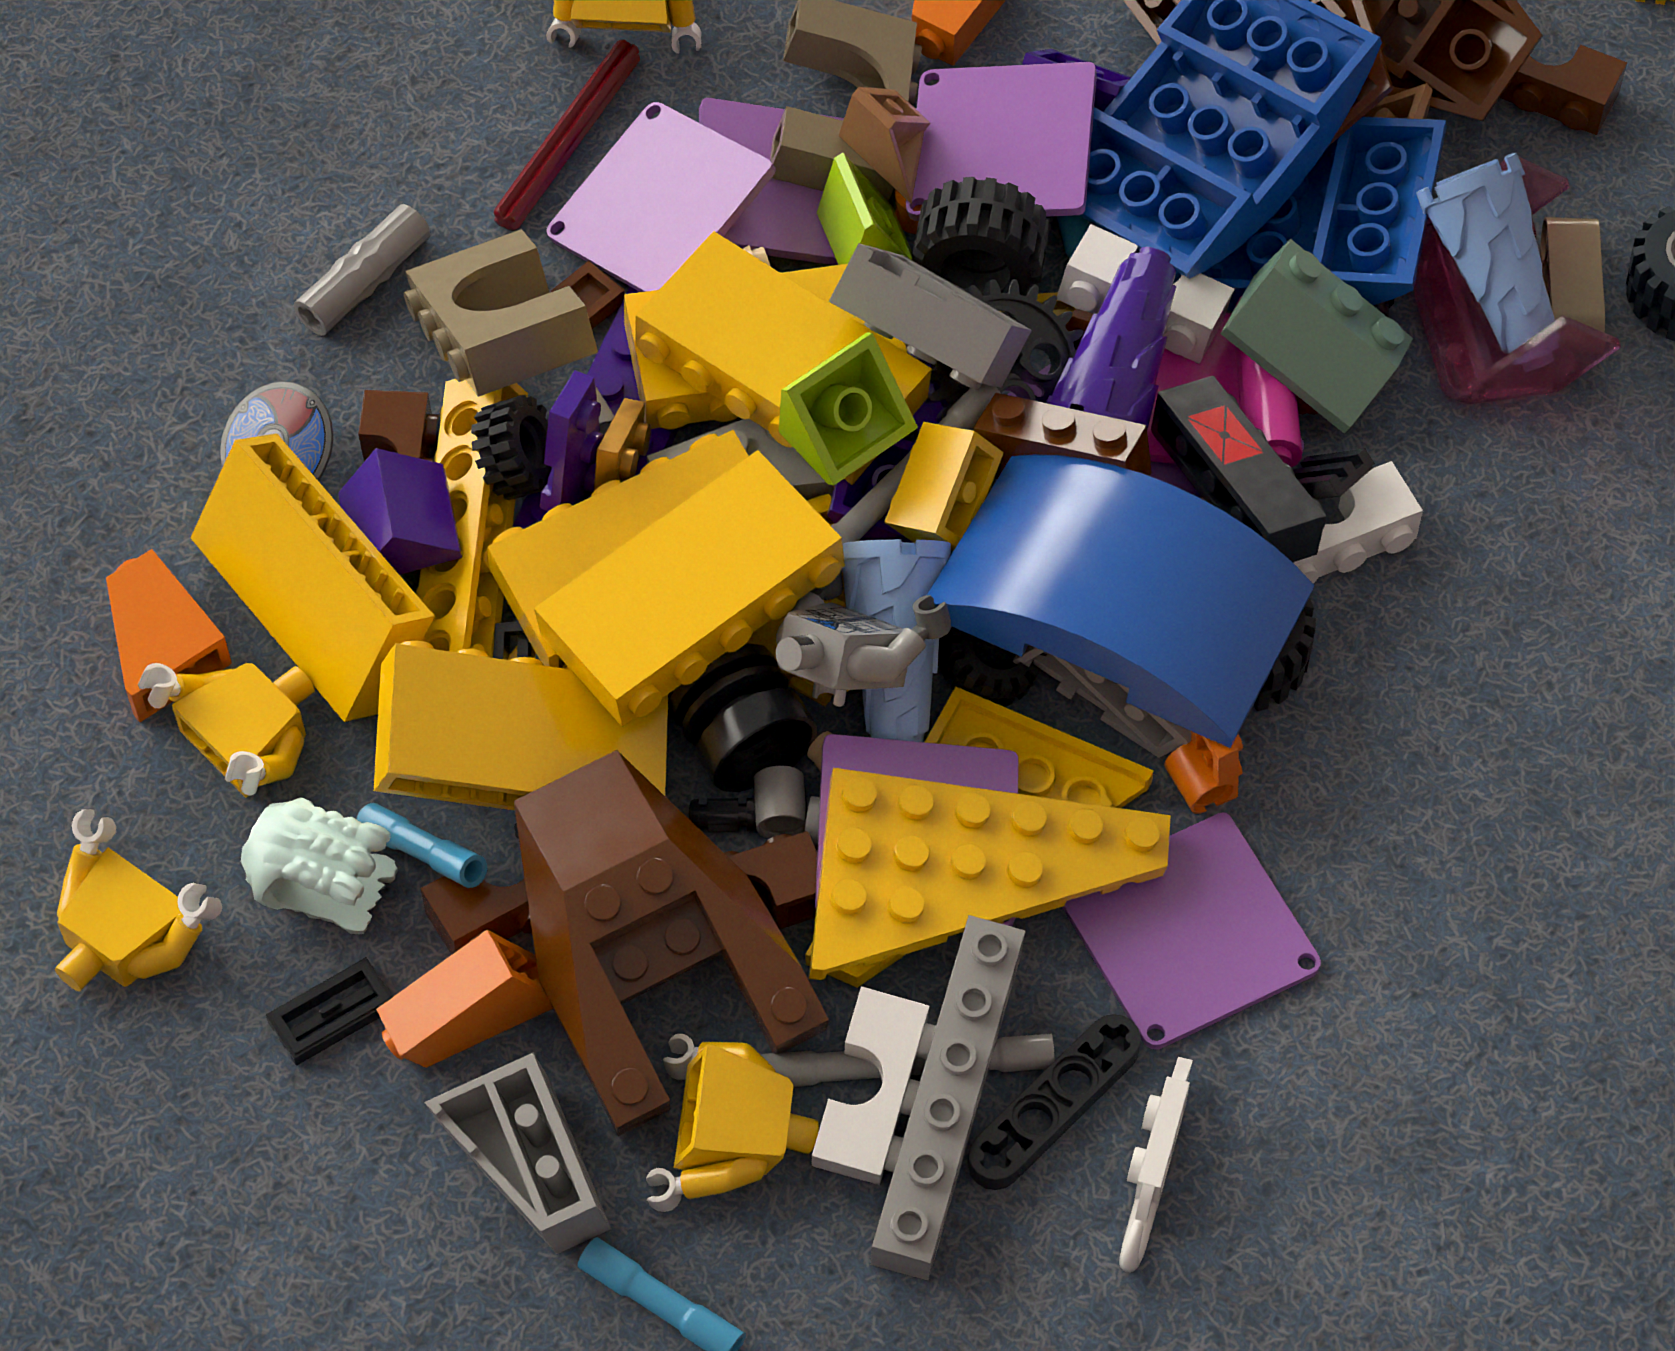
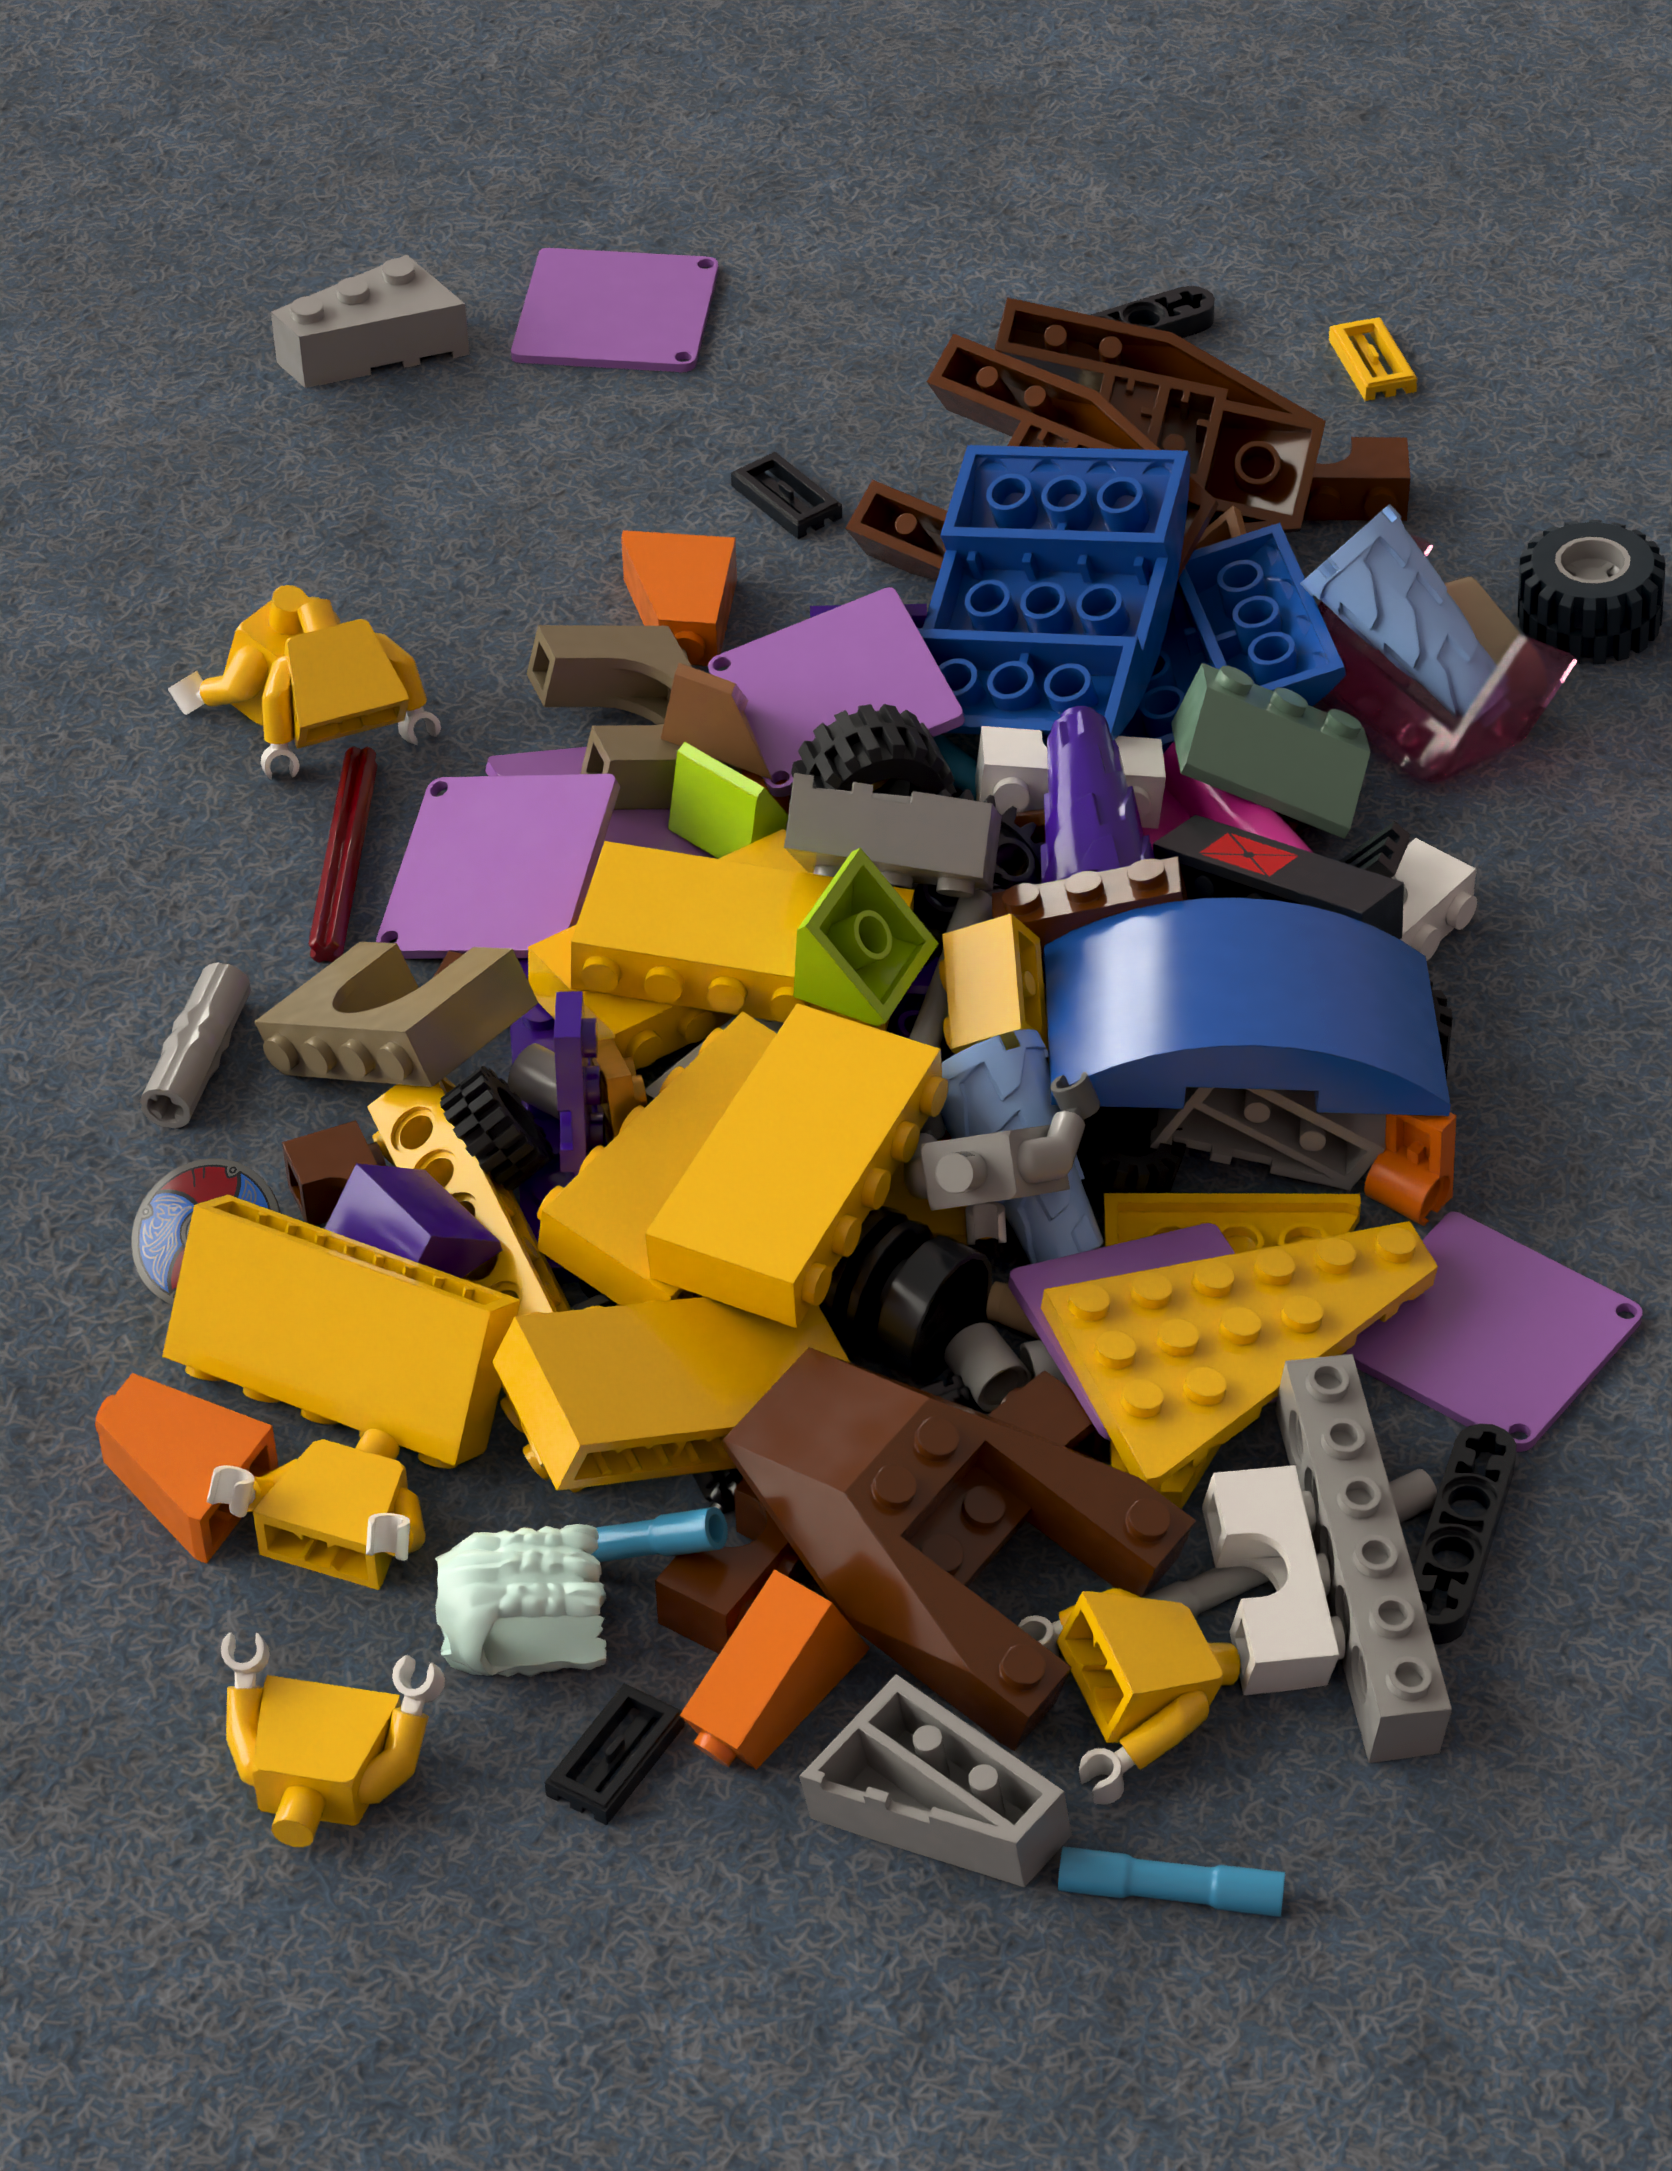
camera: 25 degrees left, 15 degrees down
(1151, 1165) = (1605, 1543): white plate -> none

